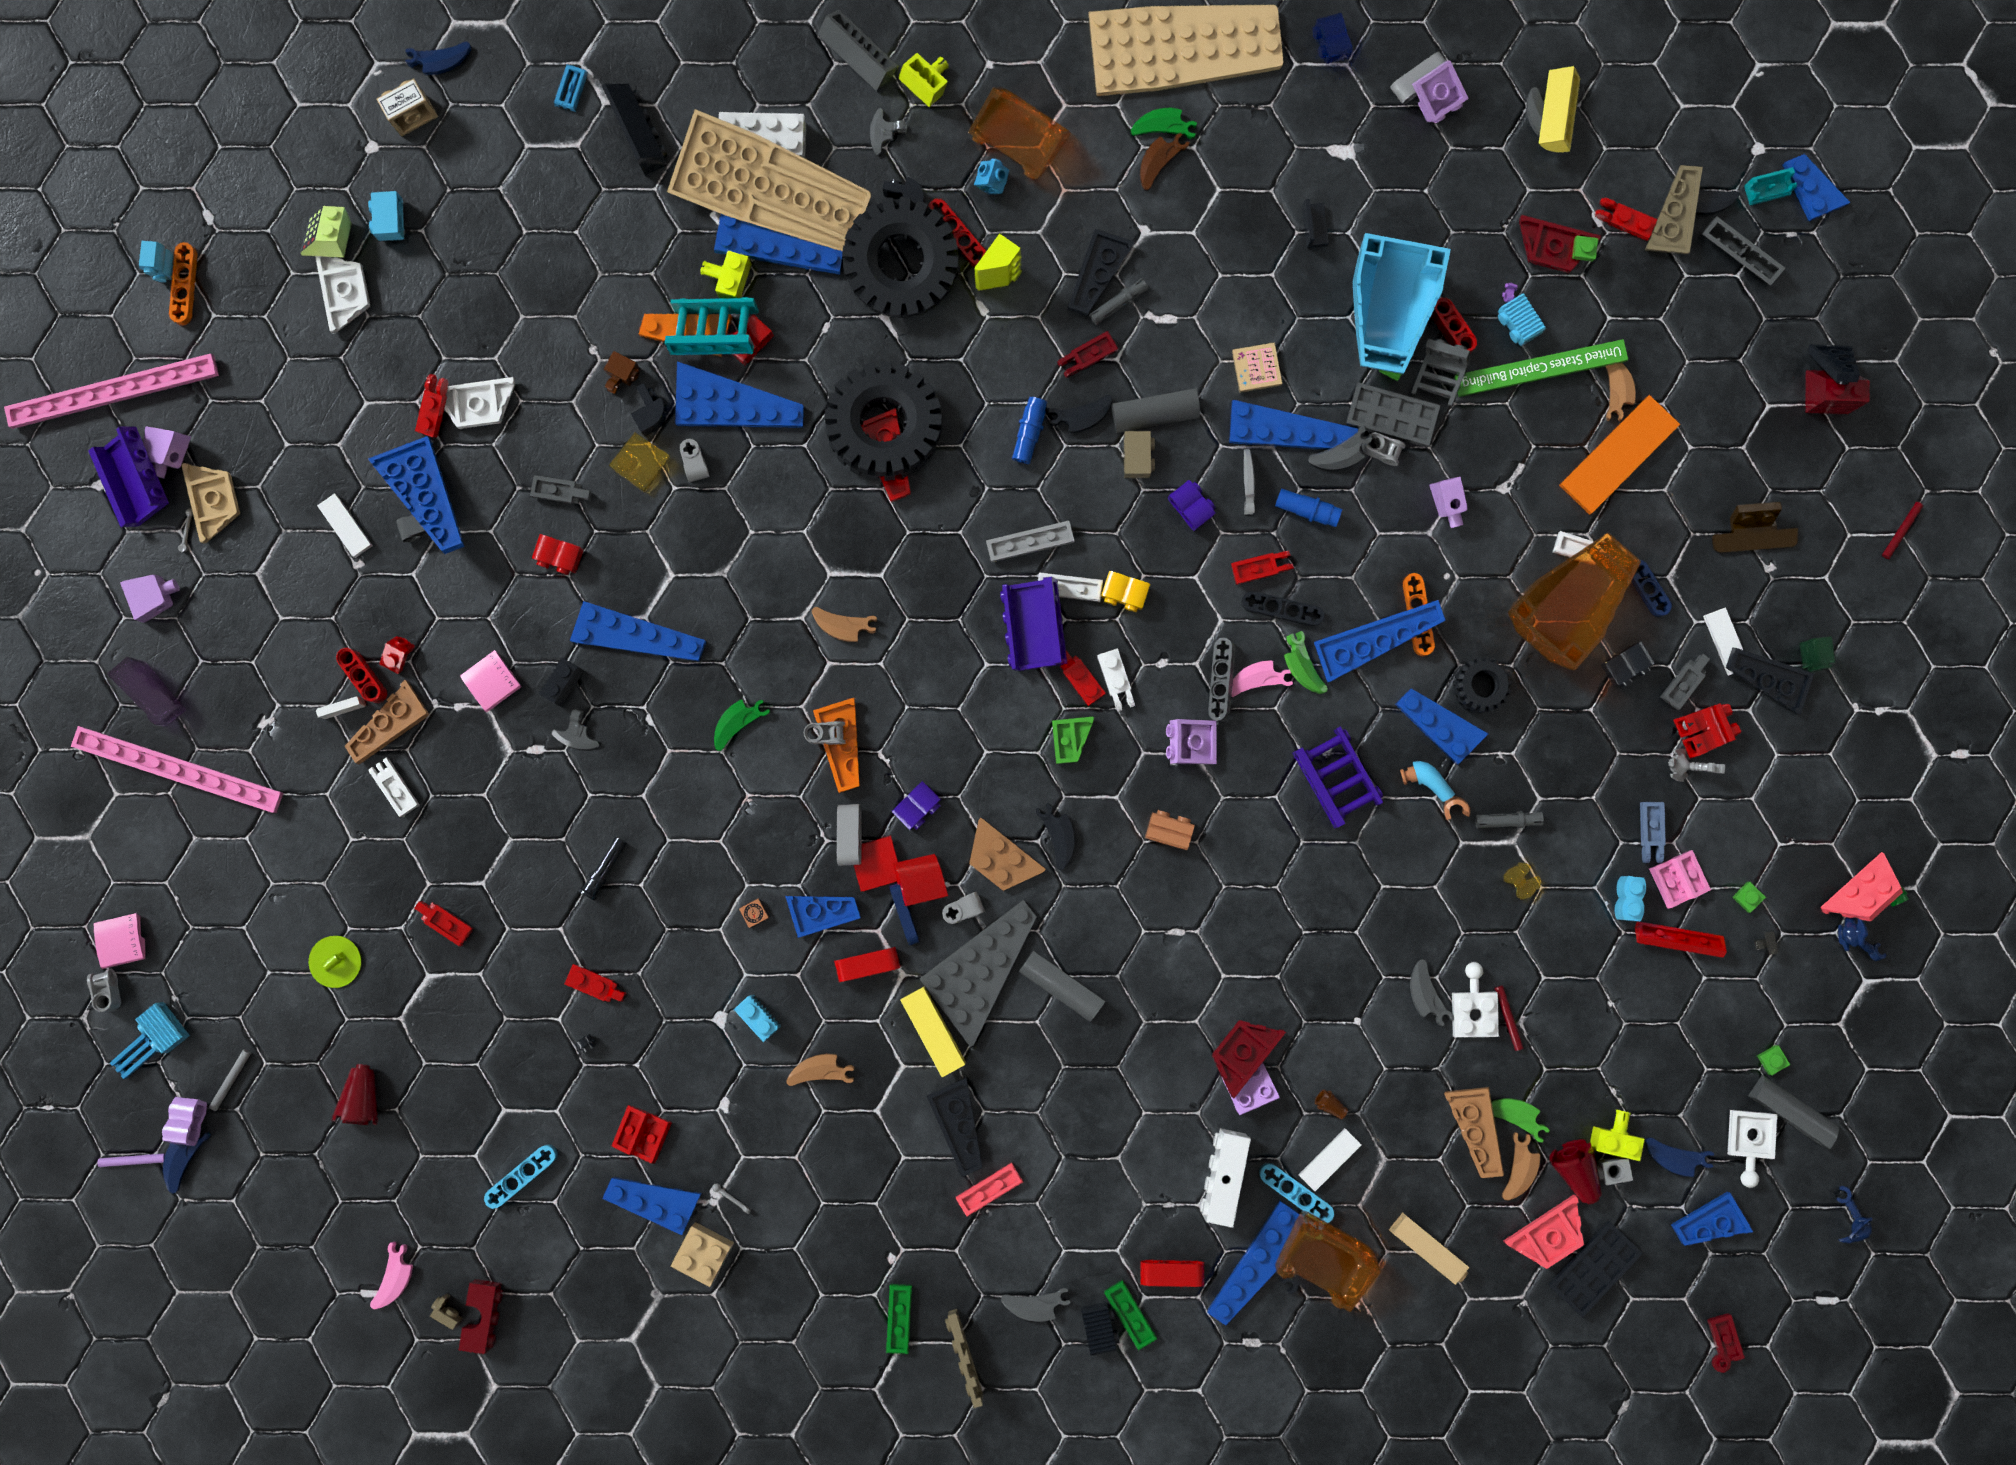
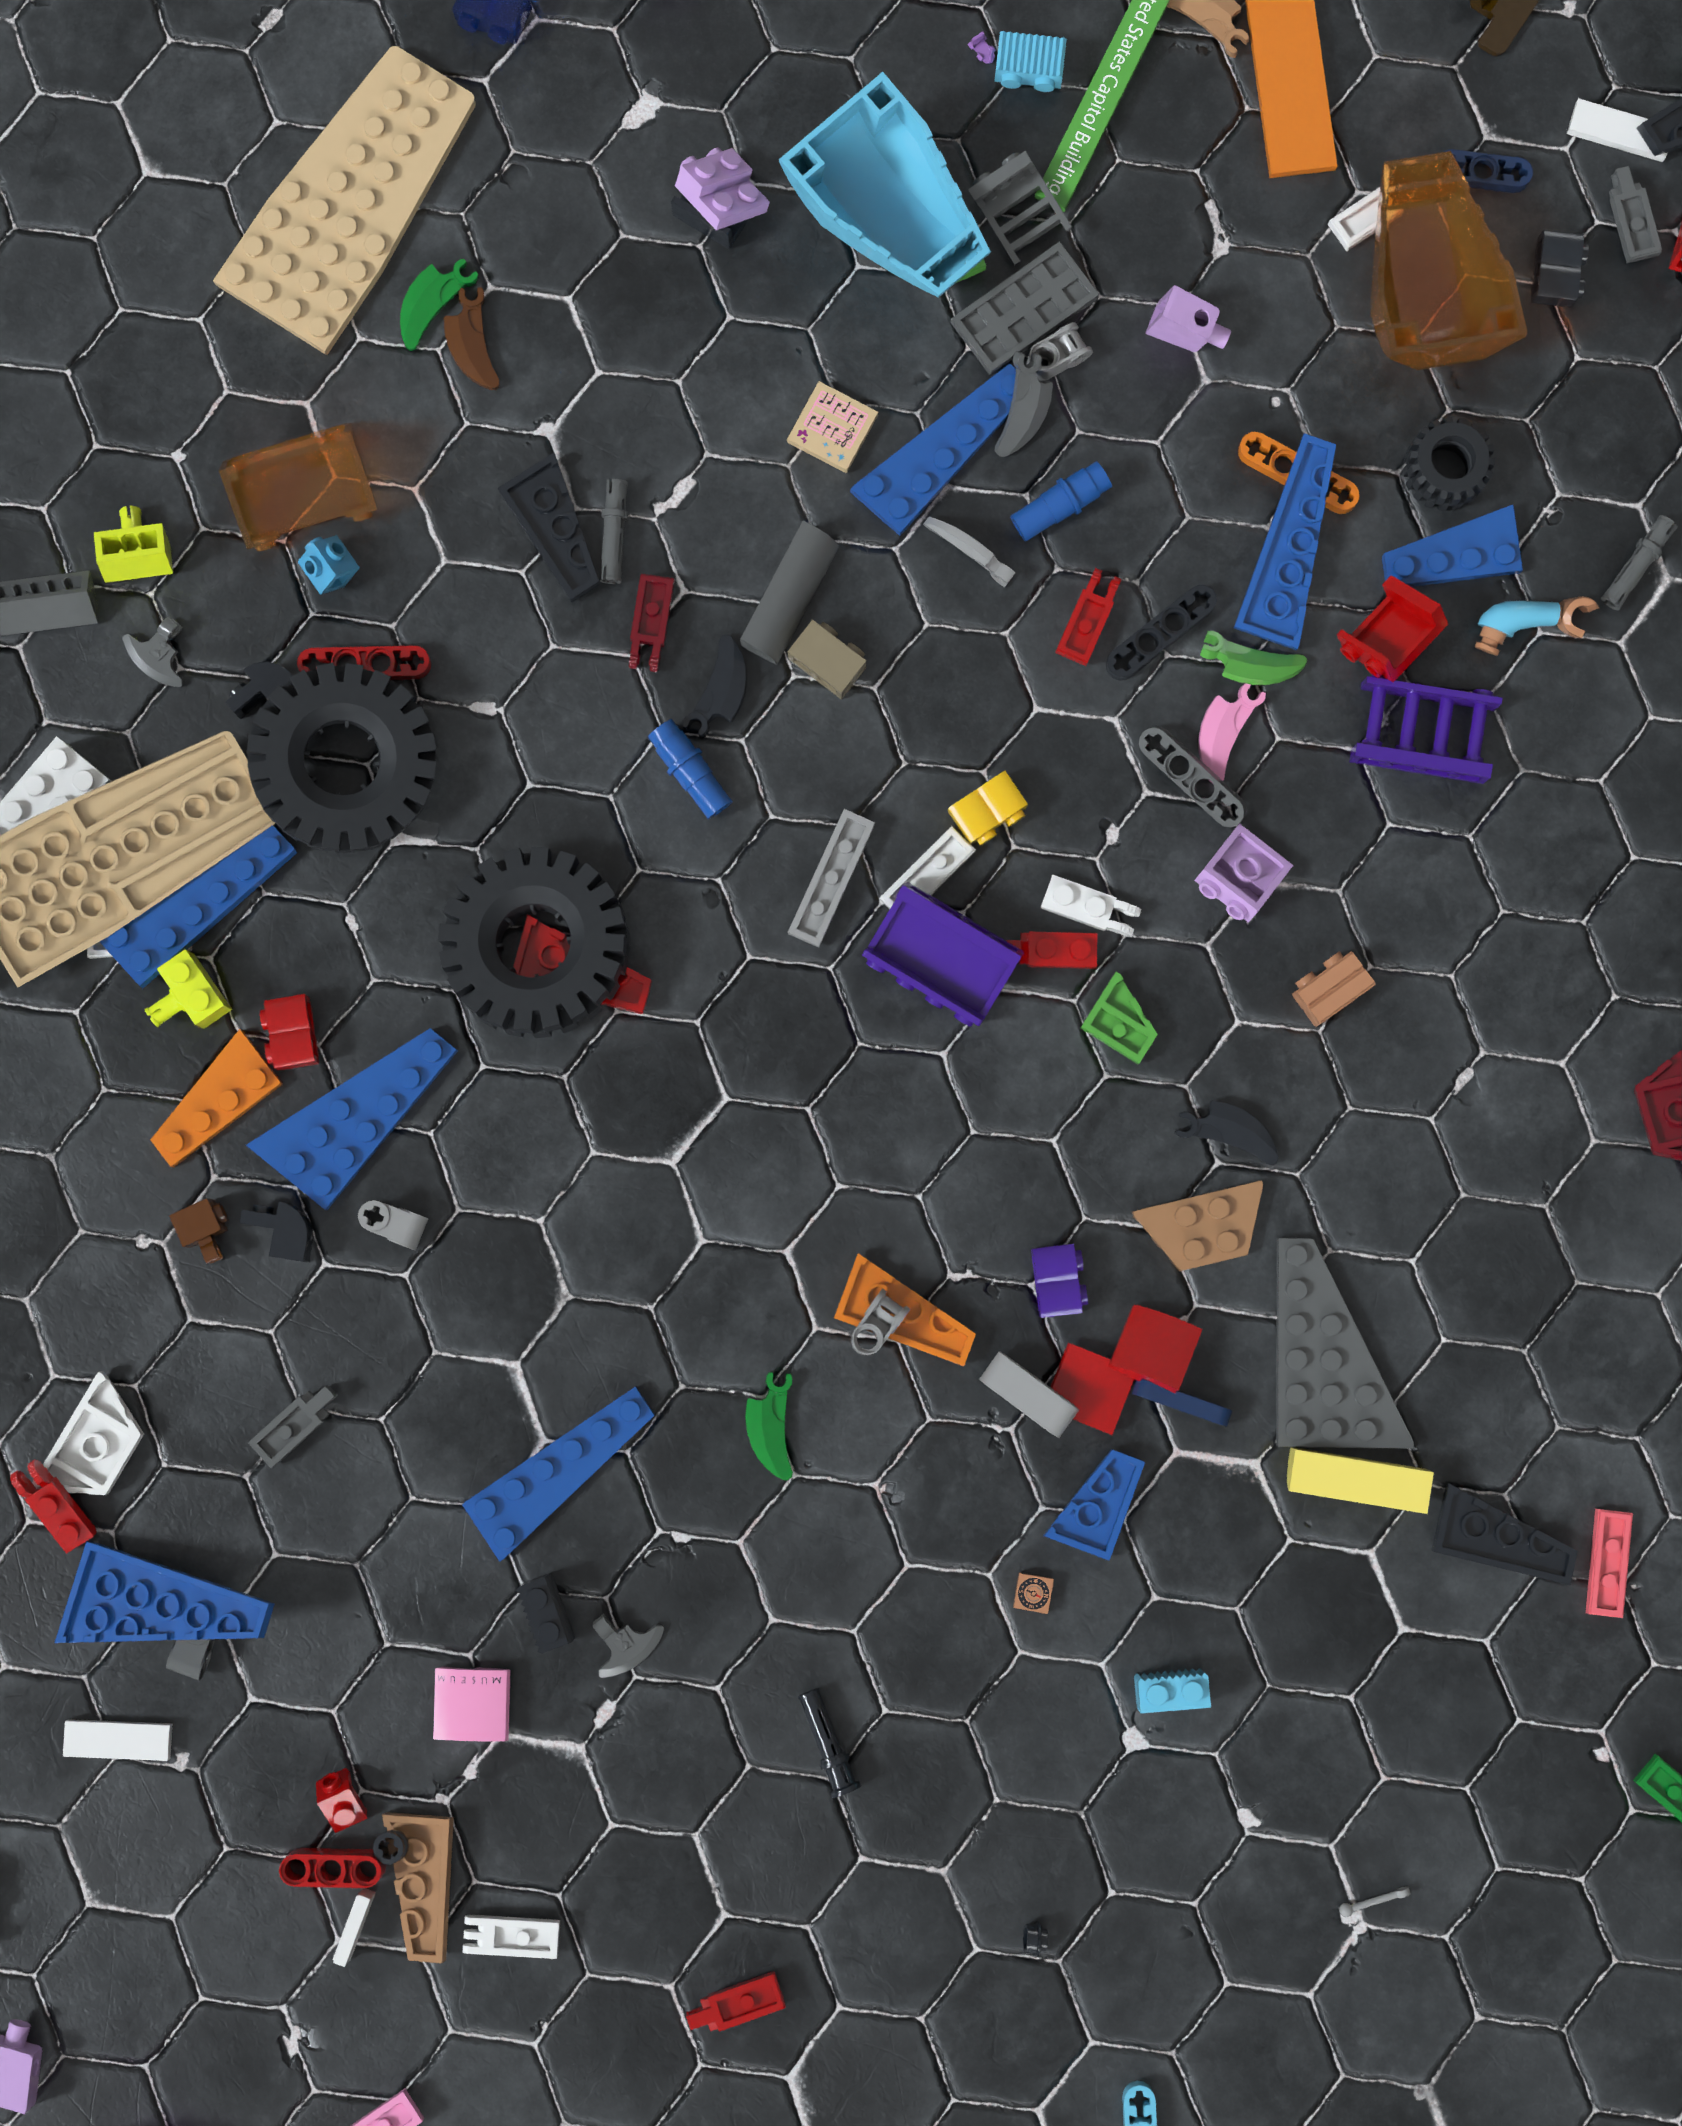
camera: 55 degrees left, 0 degrees up
(398, 697) = (400, 1842): none -> black bush
(557, 554) = (374, 1491): red brick -> none
(593, 984) = (966, 1869): red hinge -> none
(639, 461) = (337, 1293): clear yellow plate -> none
(641, 1134) = (1205, 1954): red slope -> none
(658, 1204) = (1305, 2005): blue wing -> none
(702, 1254) = (1419, 1993): tan brick -> none
(712, 344) = (262, 1084): teal fence -> none
(819, 1067) = (1294, 1660): medium nougat piece -> none
(842, 627) = (754, 1199): medium nougat piece -> none
(867, 964) = (1210, 1498): red beam -> none
(967, 907) = (1233, 1316): light grey piece -> none
(998, 265) = (453, 640): neon yellow slope -> none
(1061, 986) = (1424, 1274): dark grey brick -> none
(1192, 505) = (944, 641): dark purple brick -> none
(1331, 218) = (721, 188): none -> lavender plate
(1373, 723) = (1394, 631): none -> red panel
(1452, 316) = (988, 140): red beam -> none

